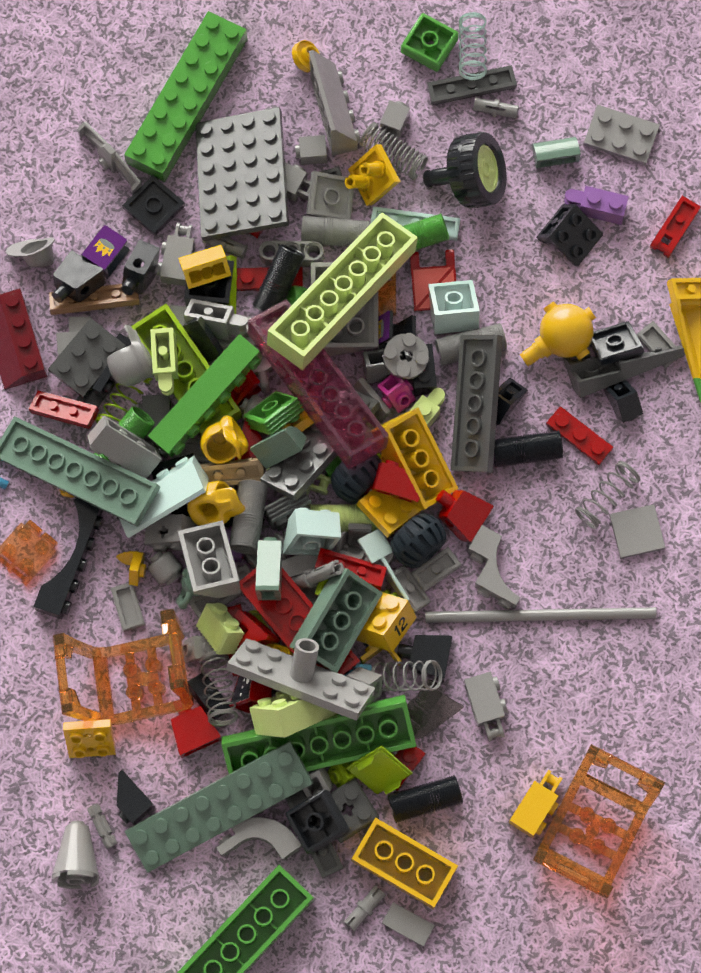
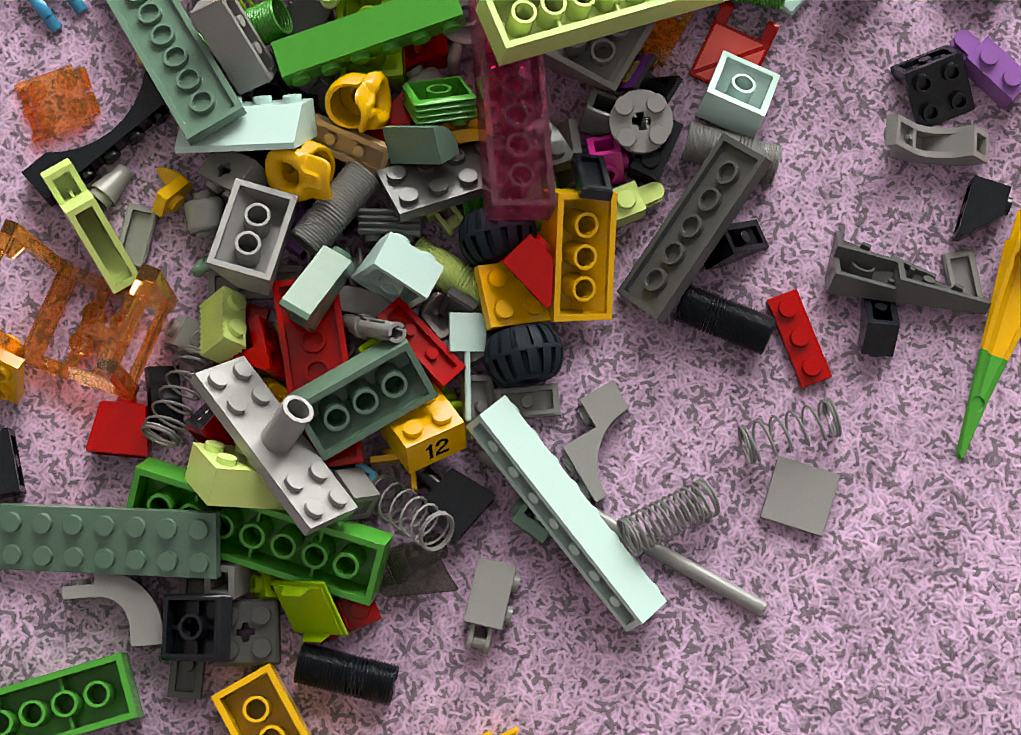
camera: 25 degrees right, 5 degrees up
(93, 586) = (111, 186): none -> light grey cone
(98, 614) = (90, 225): none -> yellowish green slope
(396, 406) = (591, 177): none -> black tile
(463, 513) = (599, 352): red torso -> none
(485, 643) = (529, 525): none -> sand green bracket
(502, 622) = (566, 514): none -> light aqua brick
(548, 606) = (622, 530): none -> light grey piece
(563, 331) = (853, 201): yellow piece -> none
(594, 269) = (936, 145): none -> light grey arch
(616, 343) = (909, 250): black tile -> none
(643, 291) = (982, 206): none -> black slope

